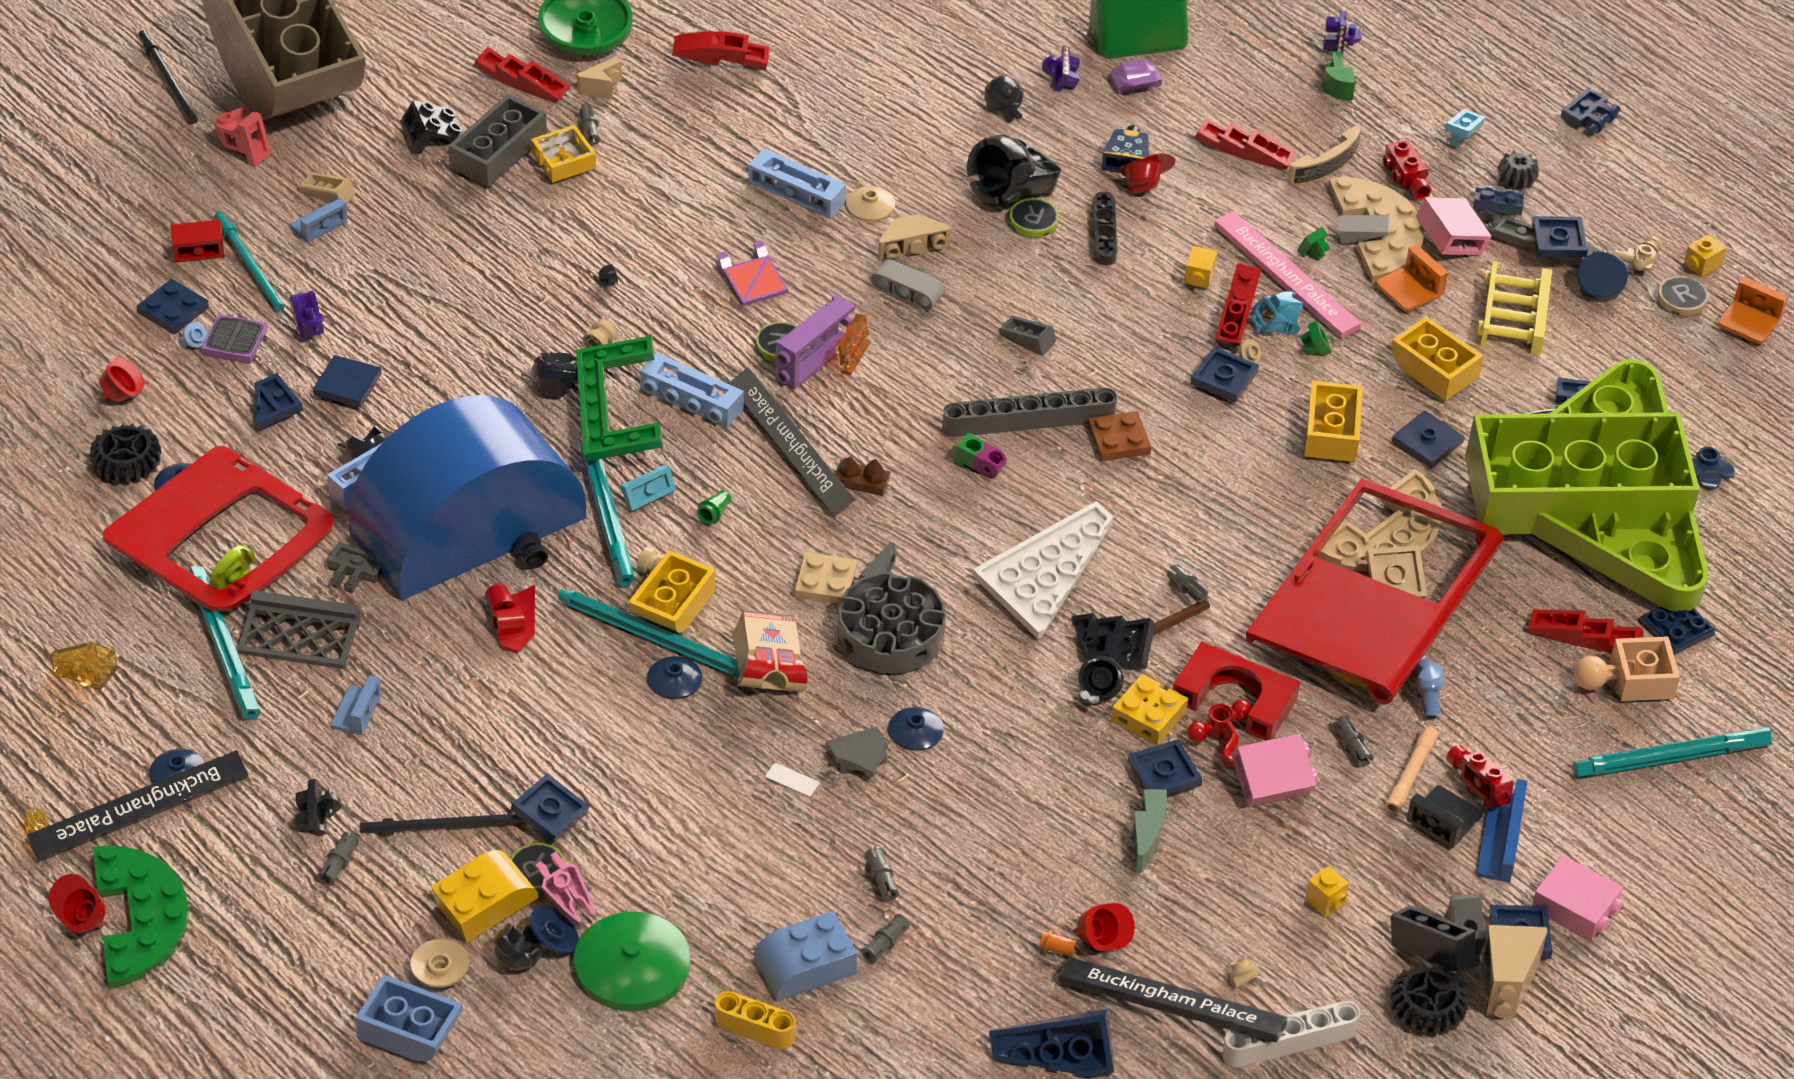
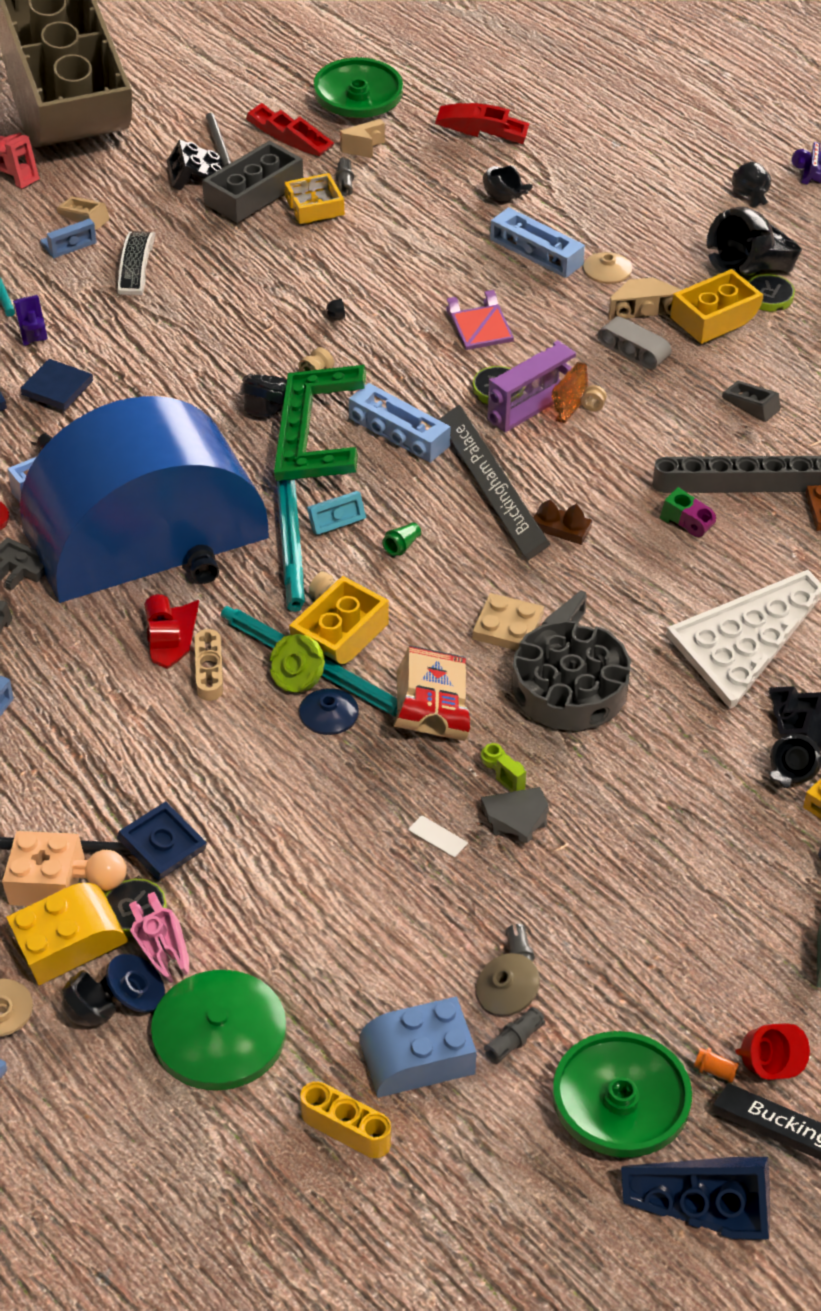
camera: 10 degrees right, 0 degrees up
(394, 240) = (134, 262): none -> slope
(449, 93) = (218, 139): none -> dark grey bar
(456, 839) = (53, 861): none -> light nougat brick
(552, 655) = (214, 673): none -> tan beam
(639, 636) = (297, 663): none -> lime tile
(755, 119) = (504, 183): none -> black hat
(847, 716) = (508, 772): none -> lime plate
(876, 347) = (592, 403): none -> tan bush
(878, 906) = (515, 992): none -> dark tan dish
(916, 728) = (583, 793): dark blue dish -> none
(982, 973) = (622, 1094): none -> green dish
(983, 239) = (715, 306): none -> yellow brick

